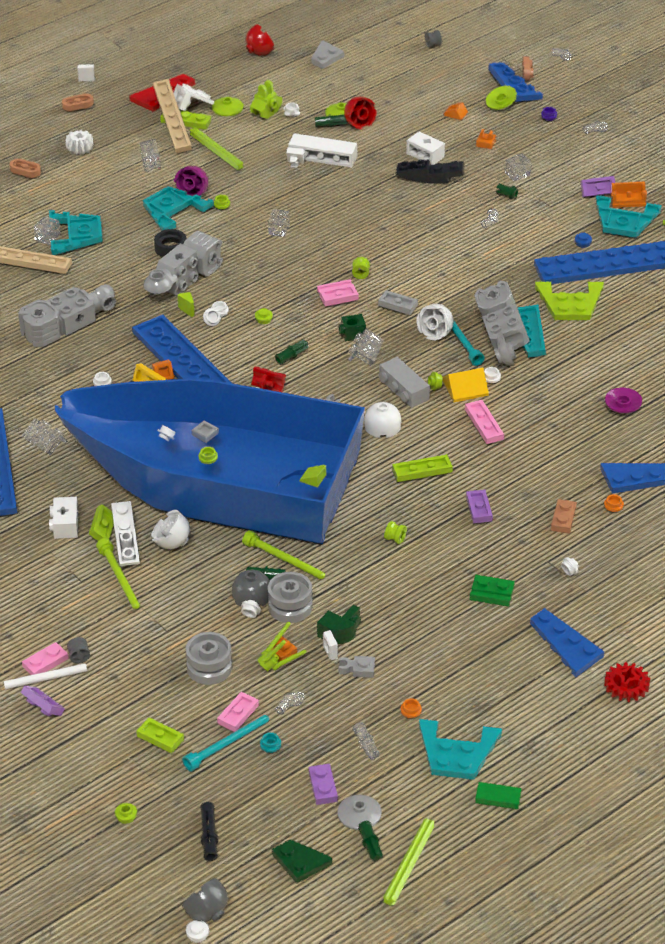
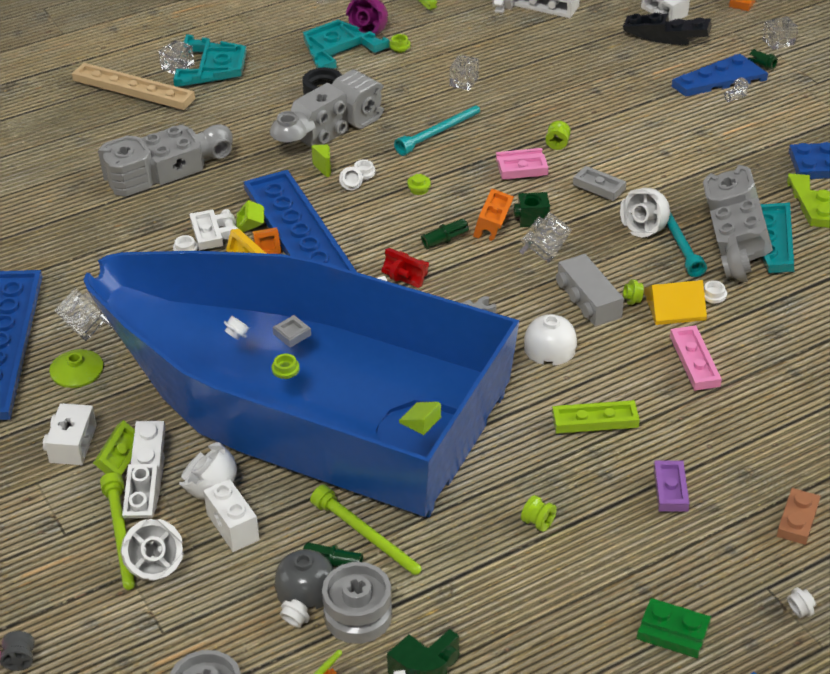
camera: 10 degrees right, 0 degrees up
(50, 474) = (76, 368): none -> lime dish
(115, 365) = (207, 230): none -> white plate
(144, 353) = (250, 216): none -> lime slope
(148, 581) = (152, 549): none -> white cylinder
(192, 555) = (231, 515): none -> white brick
(247, 286) = (406, 144): none -> teal piece
(325, 333) = (493, 213): none -> orange hinge
(475, 207) = (718, 75): none -> blue wing

